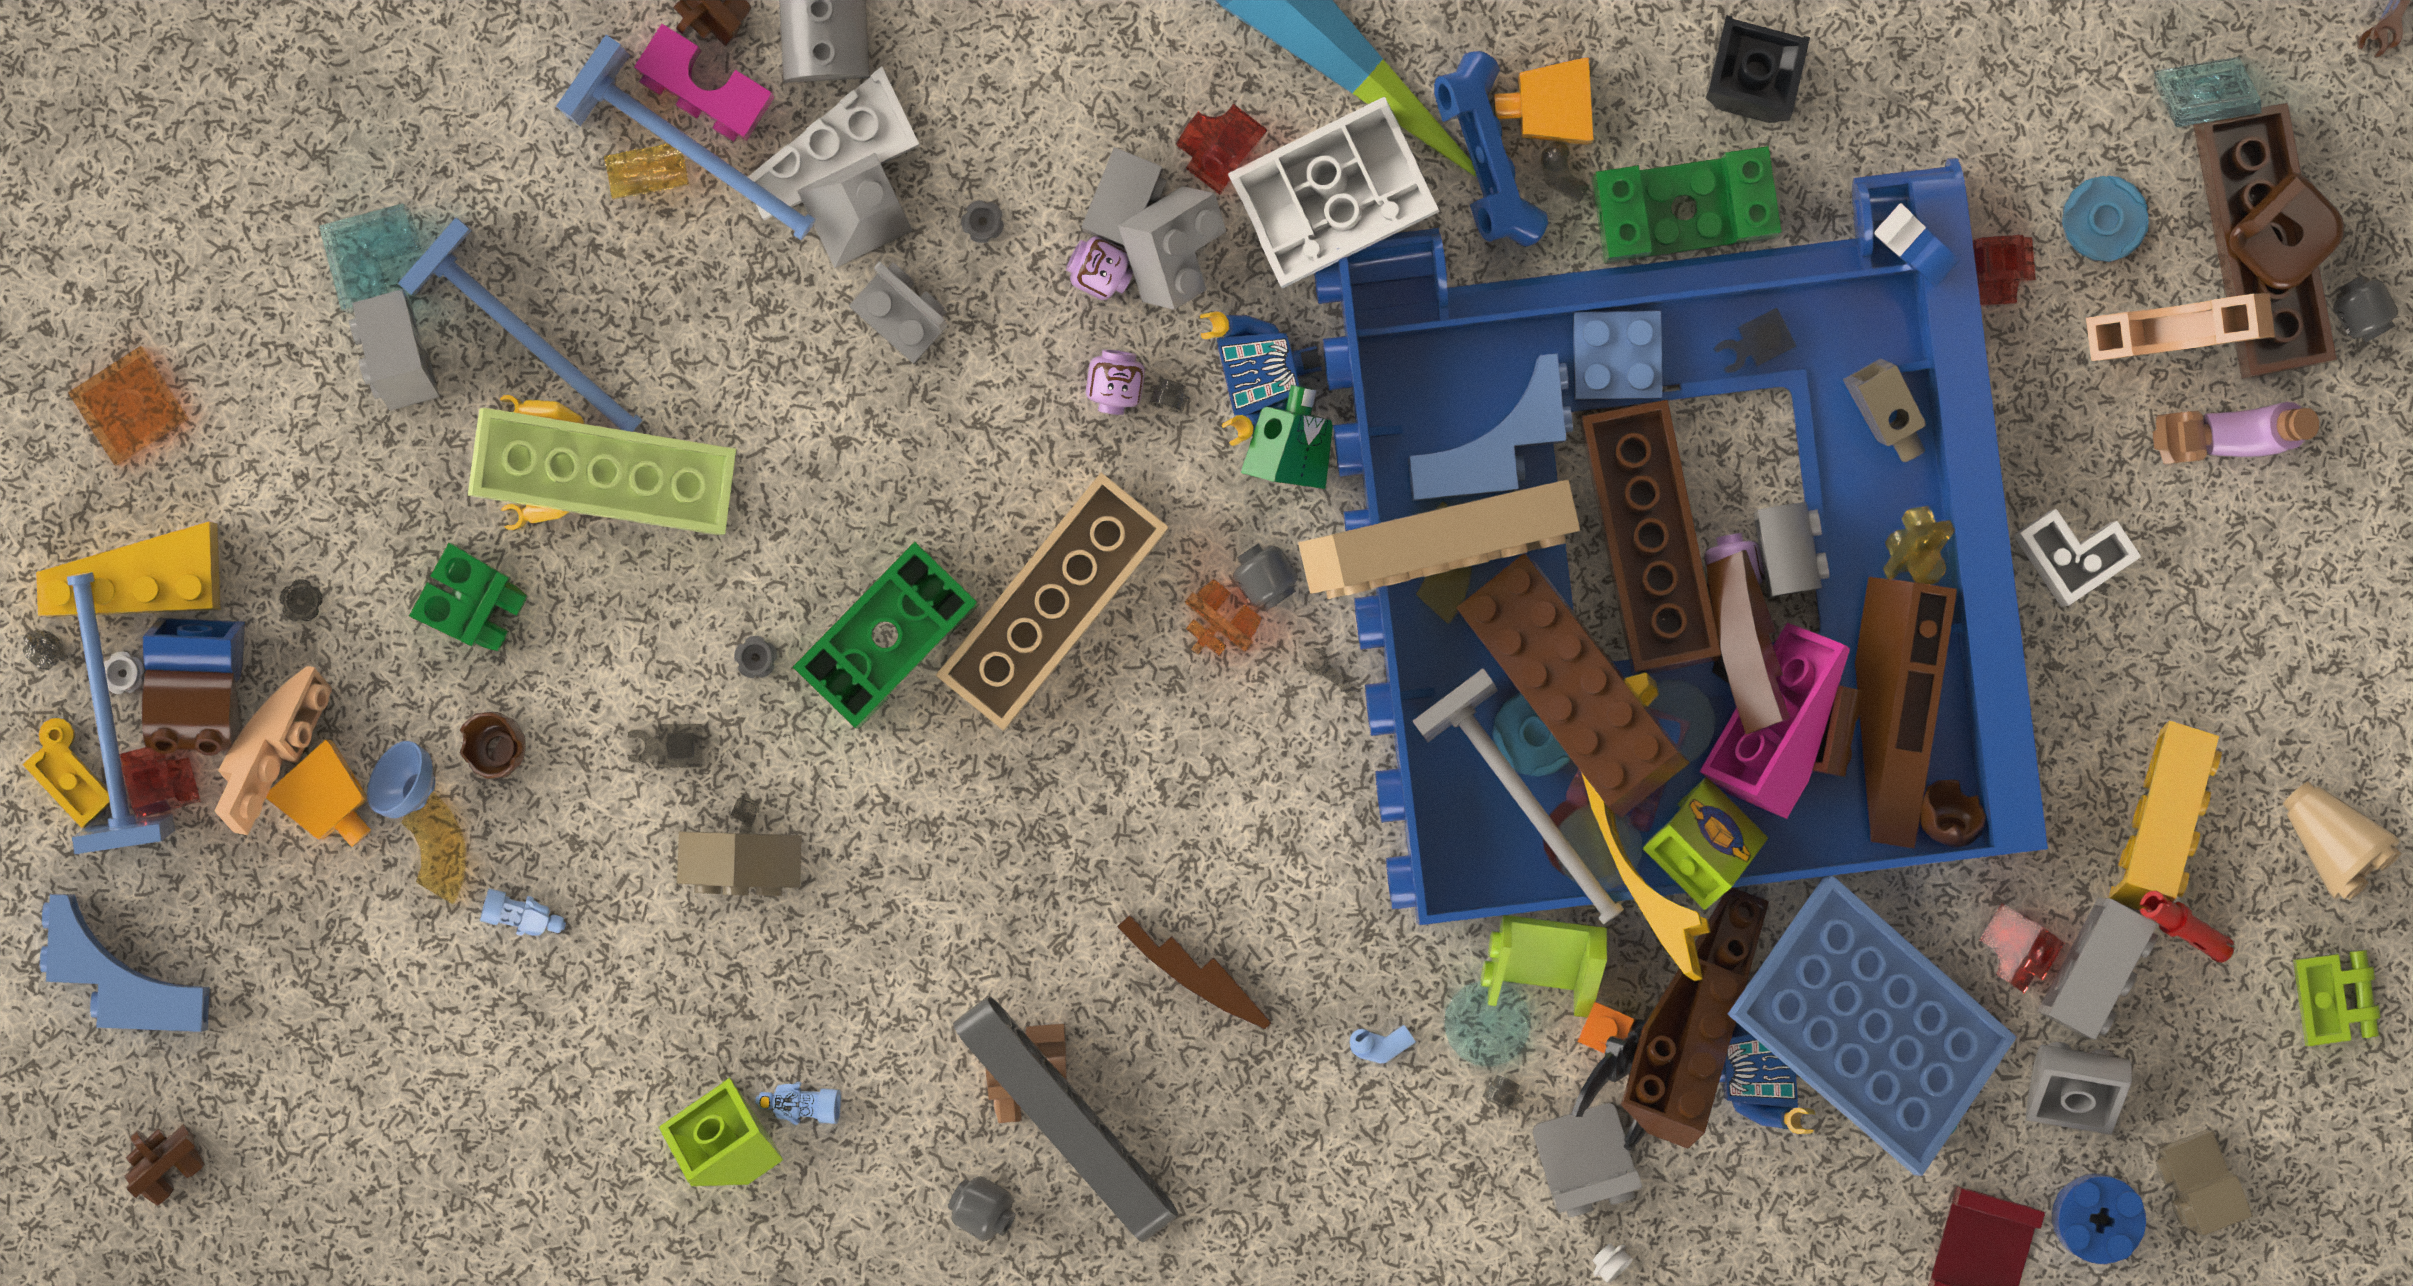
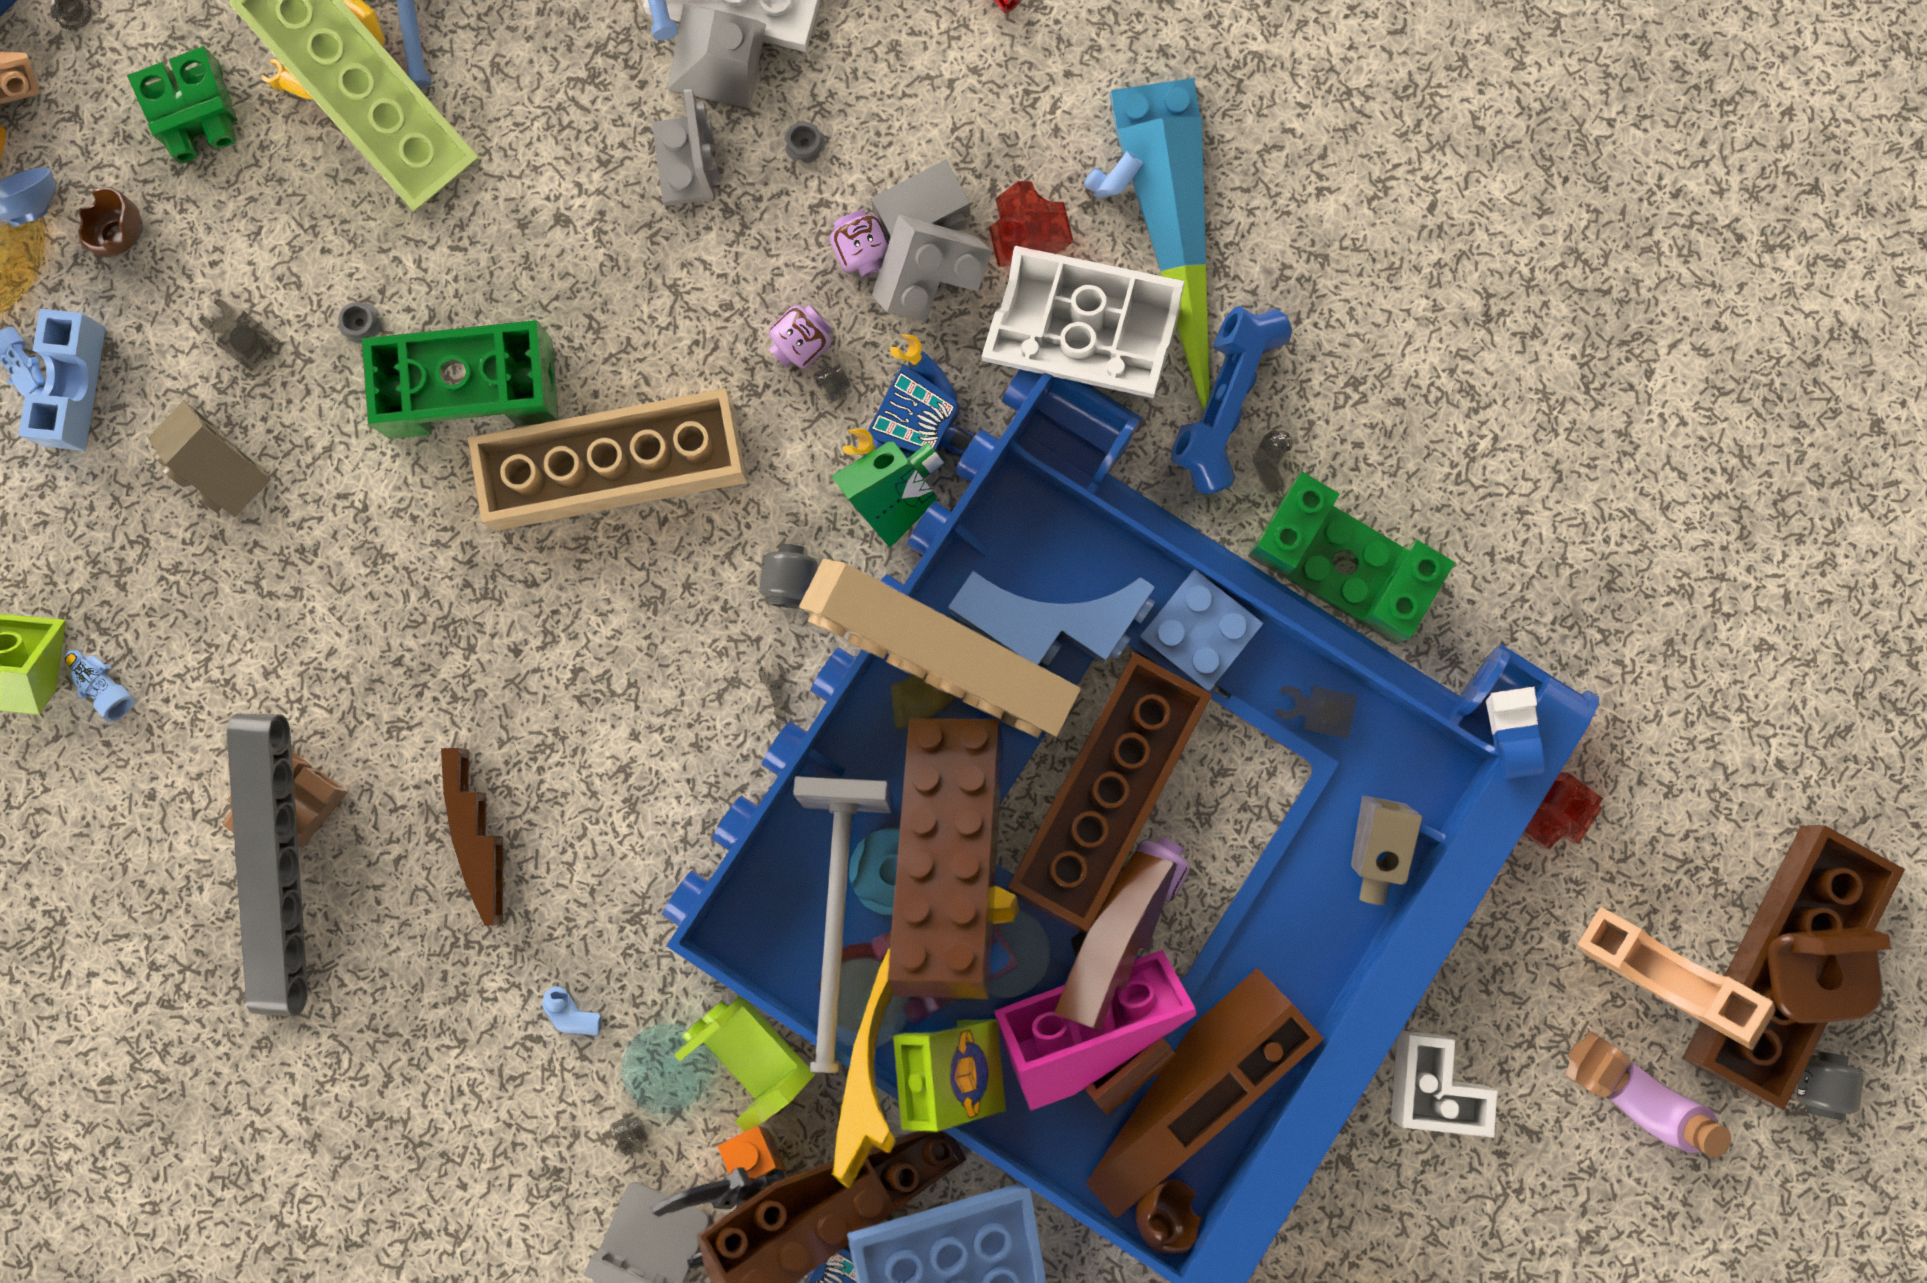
camera: 45 degrees right, 5 degrees down
(573, 894) = (72, 358): none -> light blue arch
(745, 811) = (249, 429): clear smoke hand -> none
(981, 1208) = (155, 880): dark grey head -> none
(1206, 604) = (723, 562): clear orange hips -> none
(1256, 52) = (1115, 181): none -> light blue arm
(1551, 103) = (1308, 399): light orange torso -> none
(1756, 71) = (1487, 504): black slope -> none
(1789, 549) = (1211, 893): light grey brick -> none
(1918, 546) = (1318, 977): clear yellow hips -> none
(2090, 226) = (1658, 846): dark azure tile -> none
(2207, 92) = (1840, 809): clear light blue tile -> none

